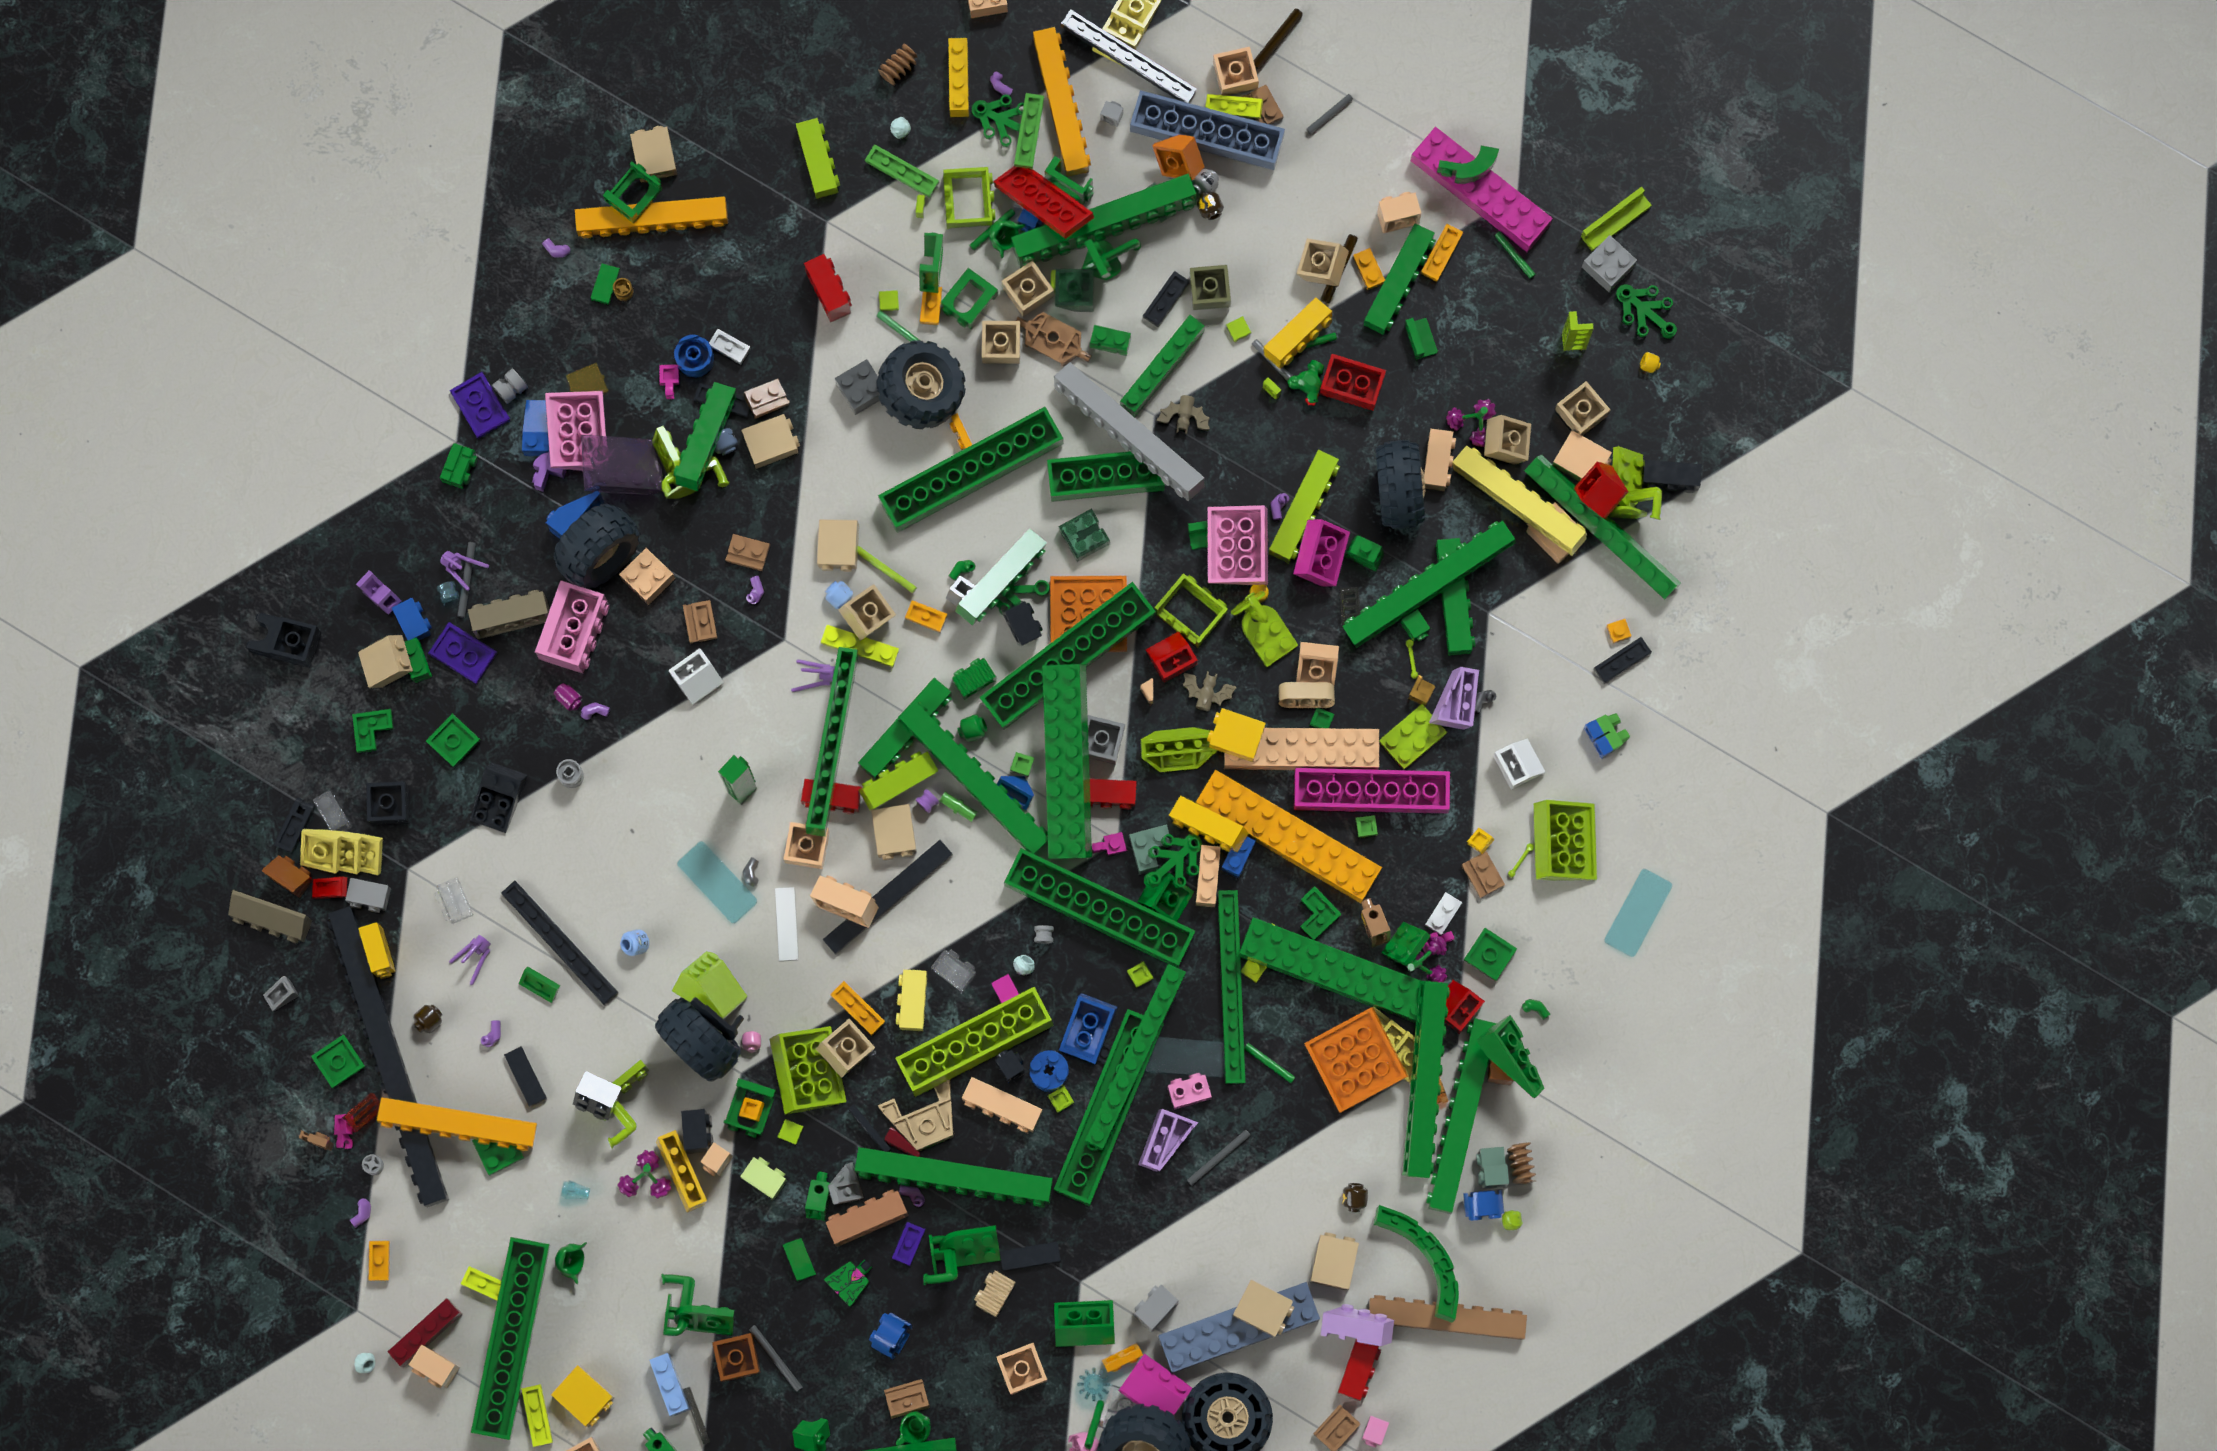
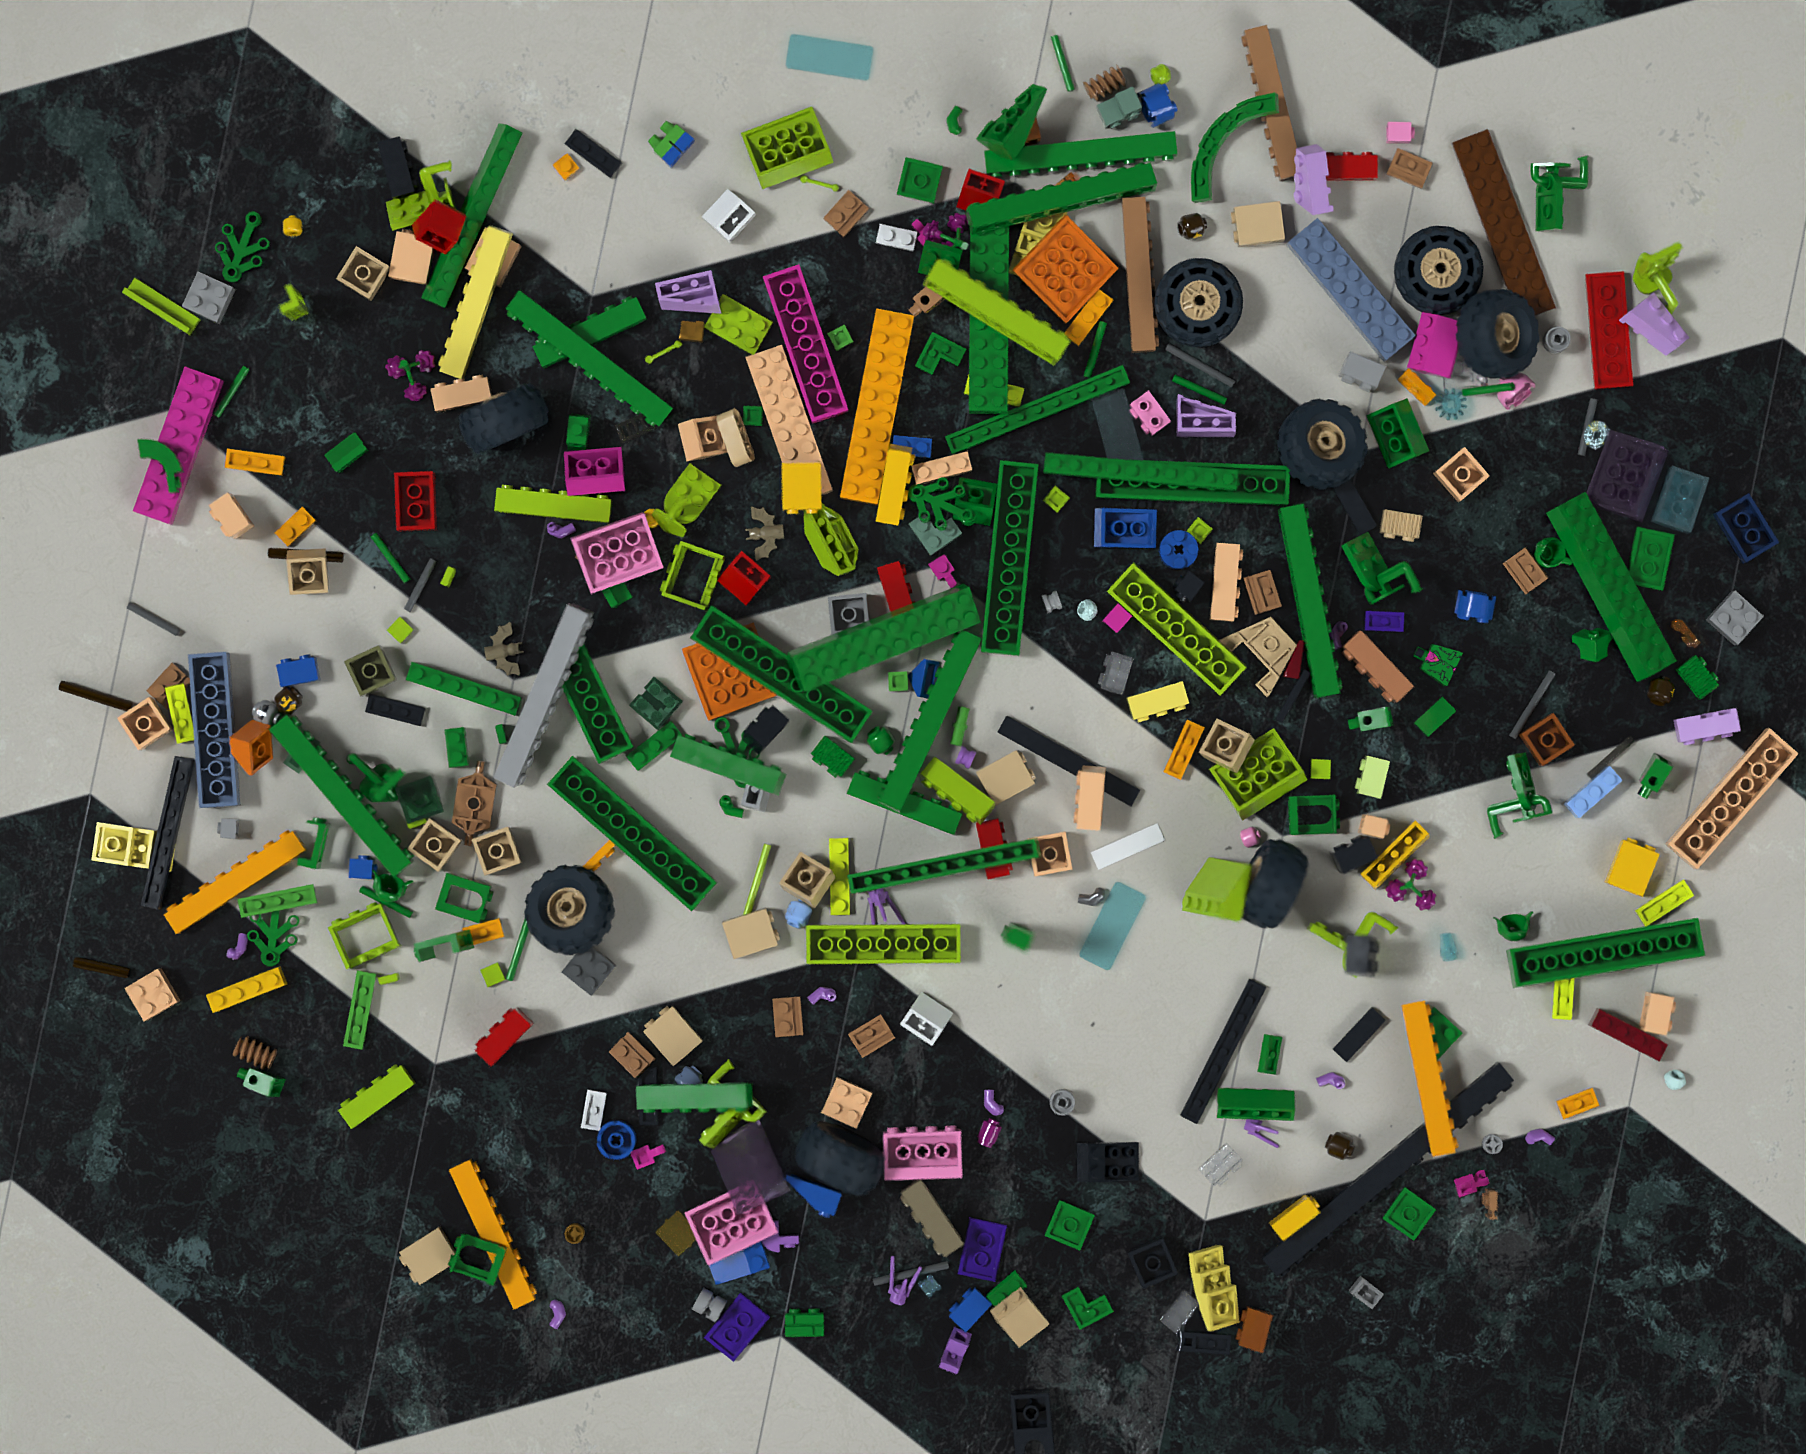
camera: 105 degrees left, 10 degrees up
(269, 916) = (1299, 1331): dark tan slope -> none
(329, 887) = (1251, 1285): red tile -> none
(351, 1122) = (1445, 1177): clear red tile -> none
(368, 895) = (1244, 1247): light grey brick -> none
(497, 953) = (1255, 1104): none -> green brick
(604, 283) = (574, 1253): green tile -> none
(634, 942) = (1199, 979): light blue head -> none
(728, 1031) = (1258, 855): black piece -> none
(751, 1109) = (1313, 812): light orange plate -> none
(781, 661) = (883, 943): none -> lime brick
(845, 1186) = (1353, 698): light grey wing -> none
(868, 61) = (261, 1081): none -> green torso
(900, 127) = (317, 1027): light aqua piece -> none
(926, 616) = (789, 824): light orange plate -> none
(979, 1137) = (1262, 592): none -> medium nougat plate
(1044, 200) = (344, 859): red plate -> none
(1045, 520) = (654, 746): none -> green plate
(1099, 1242) = (1322, 443): none -> black wheel
(1108, 384) = (501, 734): none -> green tile
(1147, 690) = (785, 588): light nougat slope -> none
(1195, 1148) = (1199, 389): none -> green piece
(1233, 223) = (298, 671): none -> blue brick
(1263, 1309) = (1329, 270): tan brick -> none
(1273, 1196) = (1192, 323): none -> black wheel
(1298, 333) = (385, 570): yellow brick -> none
(1303, 1067) = (1088, 317): none -> light orange plate
(1308, 381) = (429, 543): green animal -> none
(1326, 1129) = (1138, 274): none -> medium nougat brick
(1339, 970) = (996, 312): none -> lime brick
(1399, 278) = (295, 493): green brick -> none
(1415, 626) = (631, 358): green brick -> none
(1480, 840) = (815, 226): yellow tile -> none
(1484, 697) = (676, 271): flat silver arm -> none
(1507, 439) = (419, 333): tan brick -> none
(1556, 1131) = (1062, 63): none -> green bar

